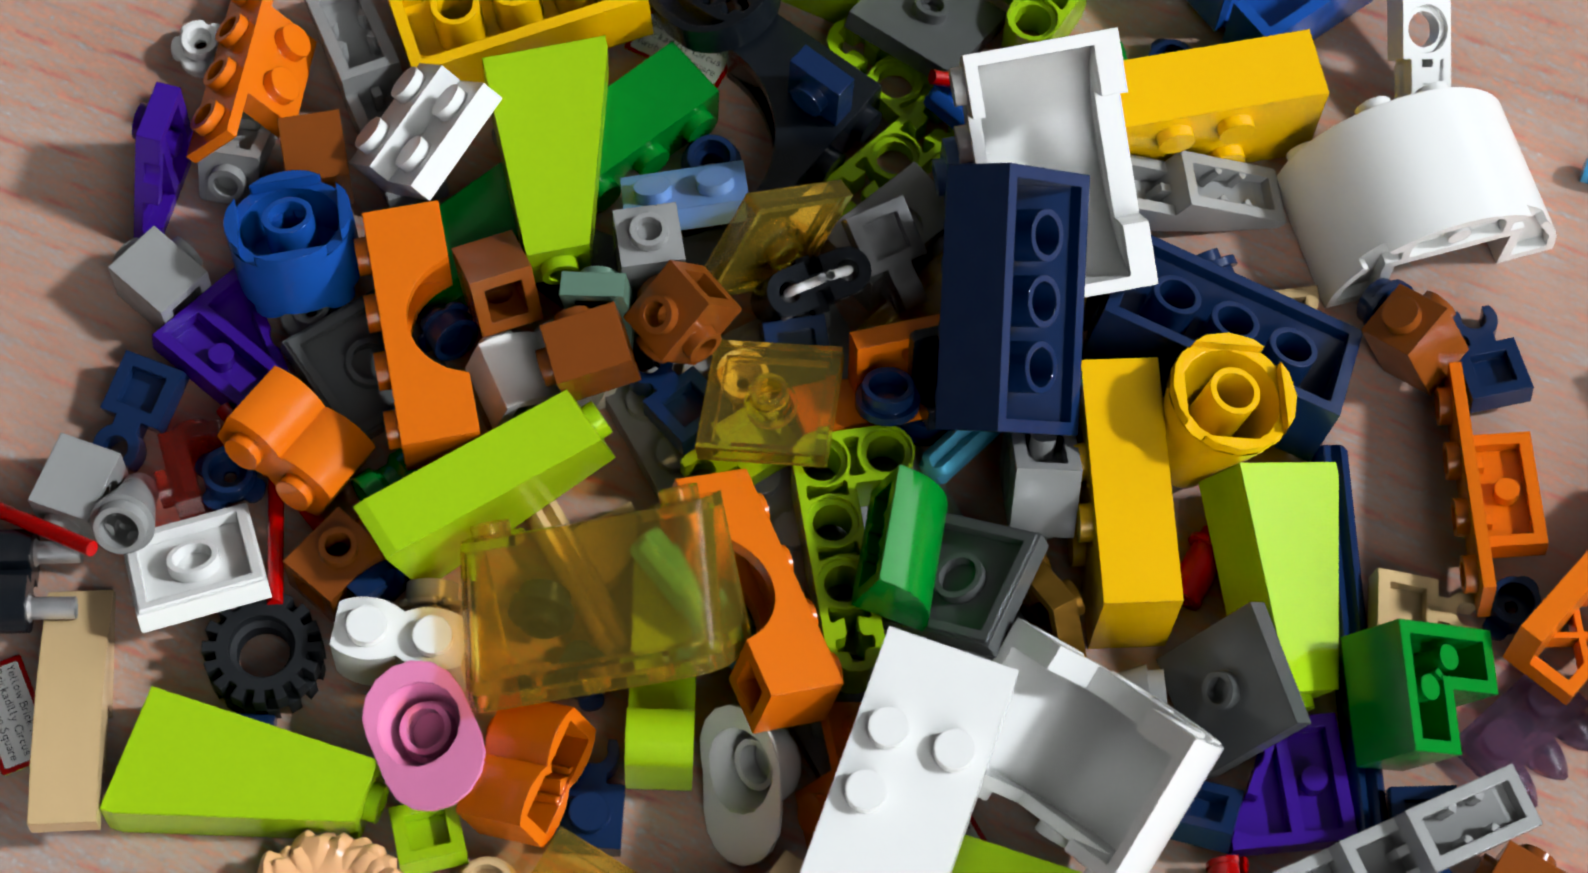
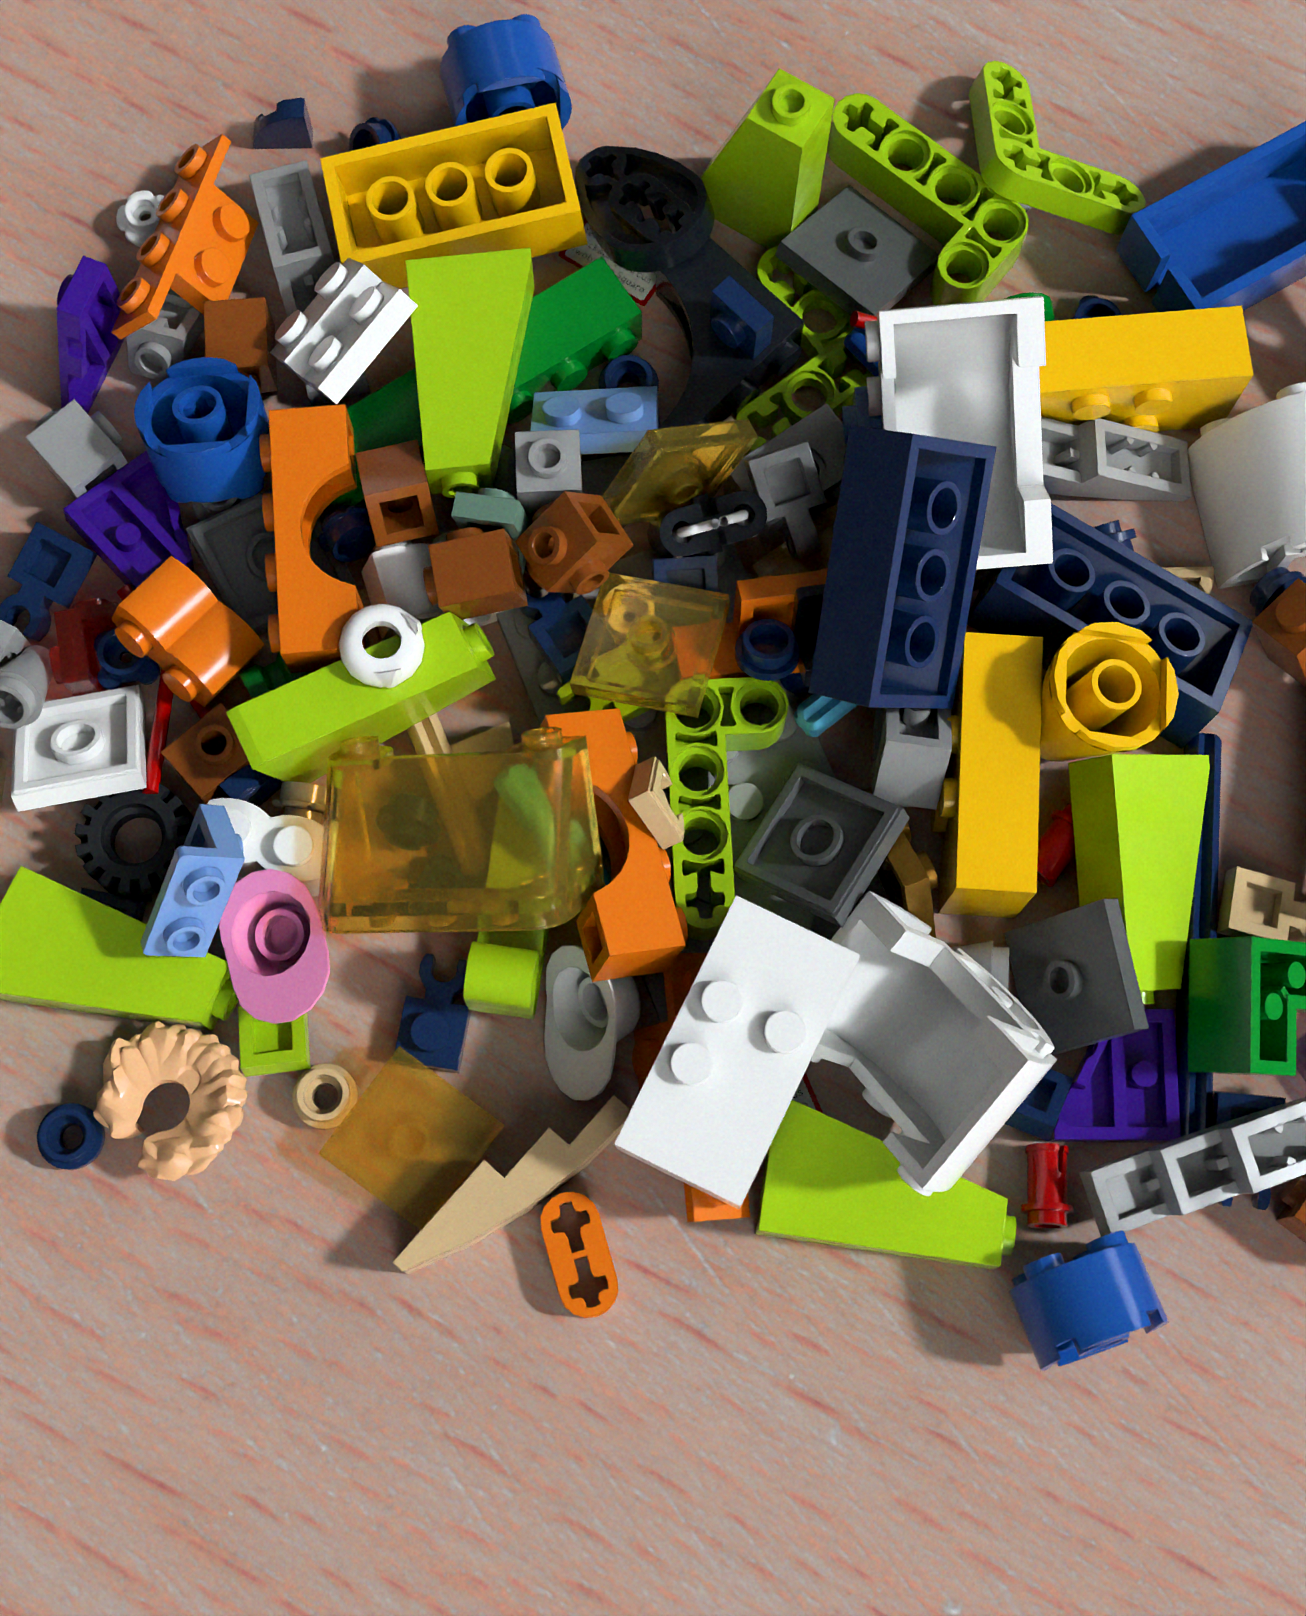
camera: 10 degrees right, 10 degrees up
(342, 682) = (195, 887): none -> medium blue bracket
(501, 450) = (386, 671): none -> white piece
(528, 772) = (374, 990): orange brick -> none
(786, 544) = (652, 805): none -> tan tile
(901, 548) = (761, 808): green brick -> none

